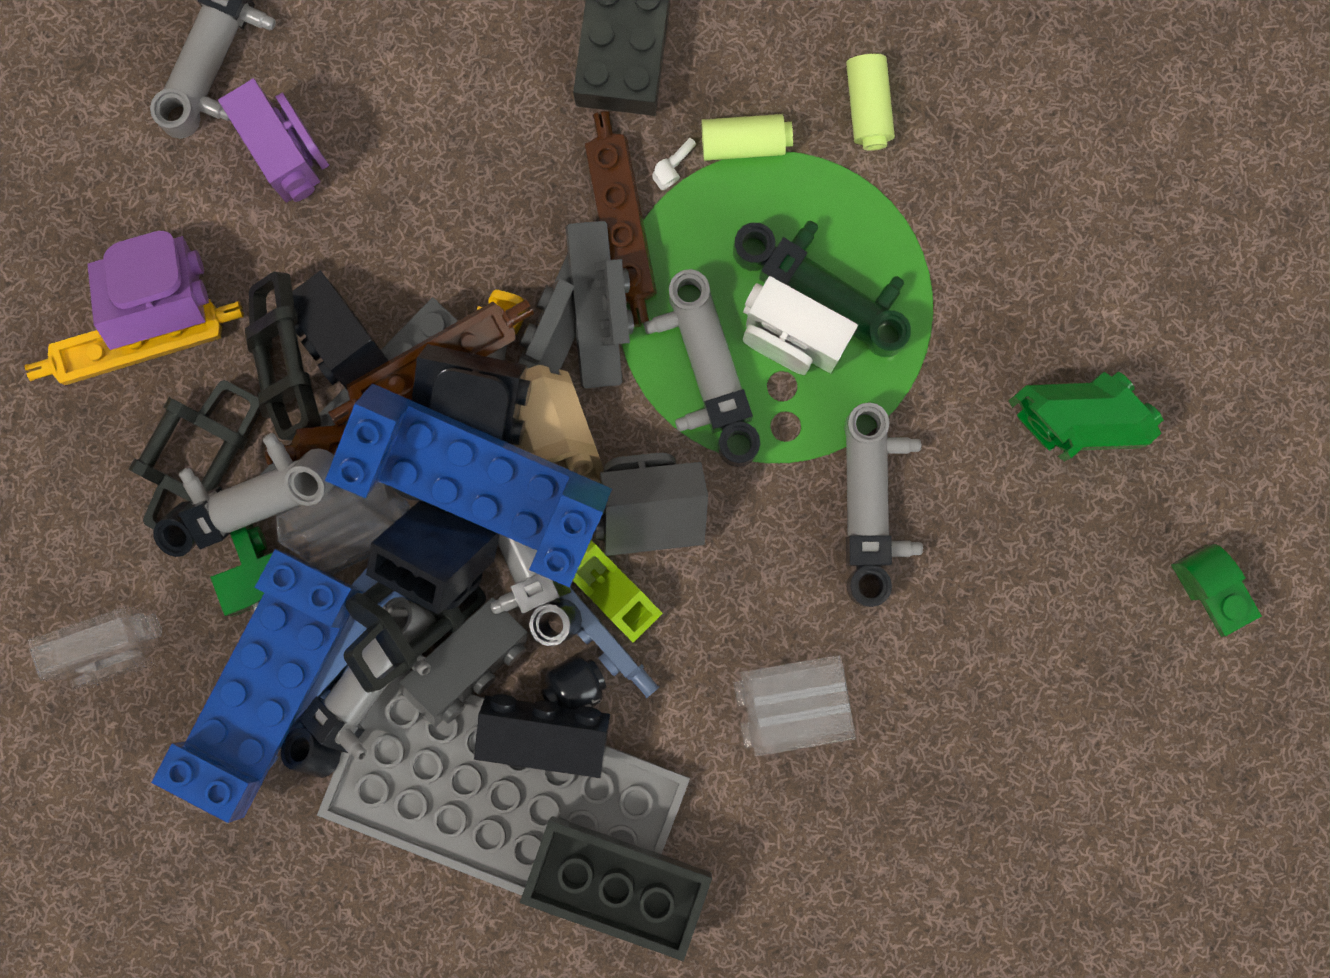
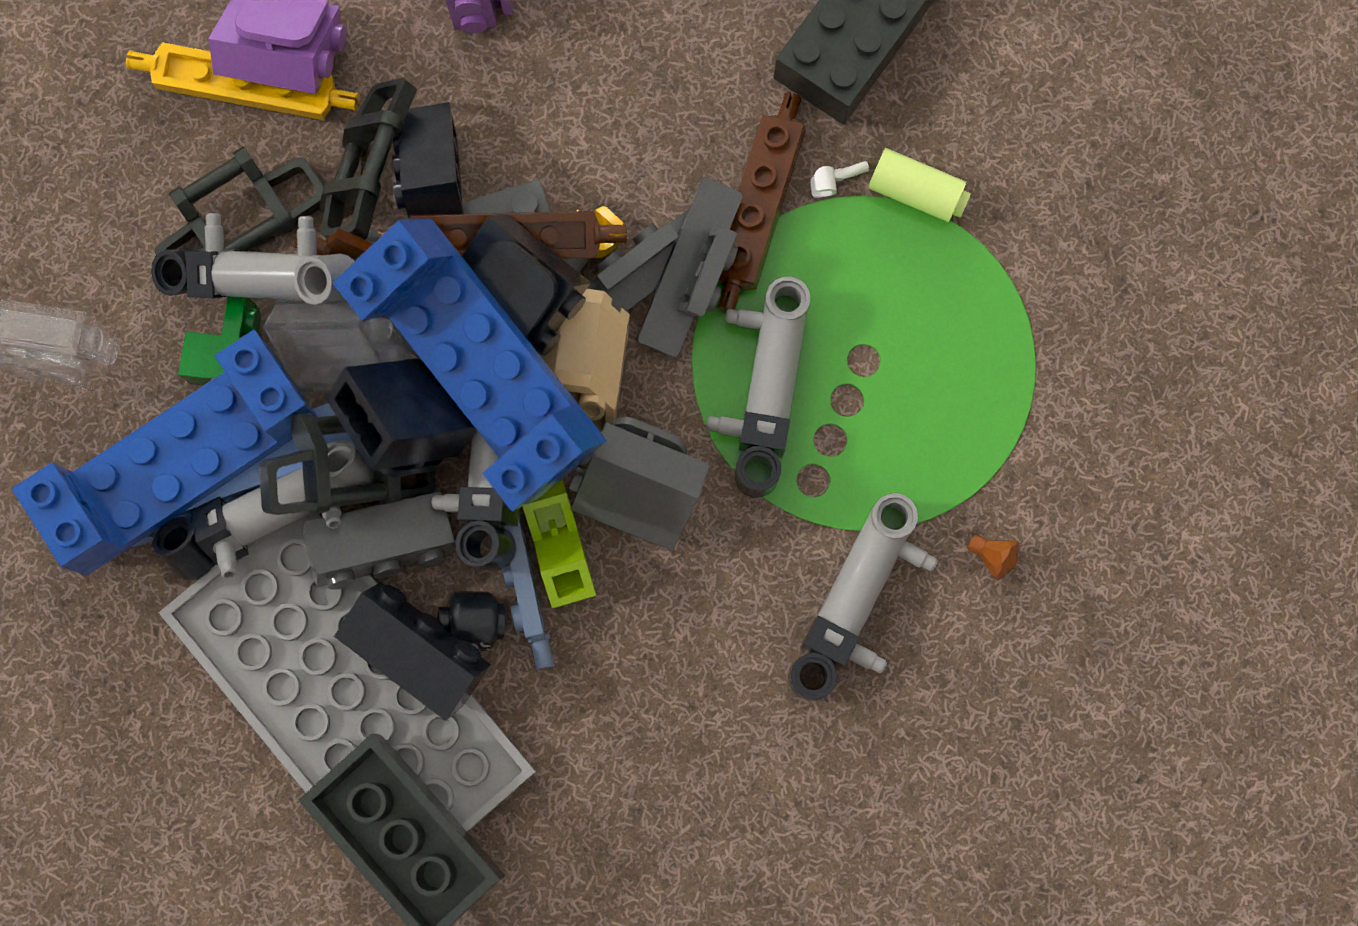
camera: 25 degrees right, 5 degrees down
(792, 267) = (896, 333): dark green piece -> none
(794, 328) = (871, 387): white brick -> none
(795, 705) = (675, 754): clear brick -> none
(870, 101) = (1058, 213): yellowish green brick -> none
(965, 409) = (997, 555): none -> dark orange rock
(1088, 415) = (1117, 622): green brick -> none
(1217, 582) = (1163, 860): green brick -> none

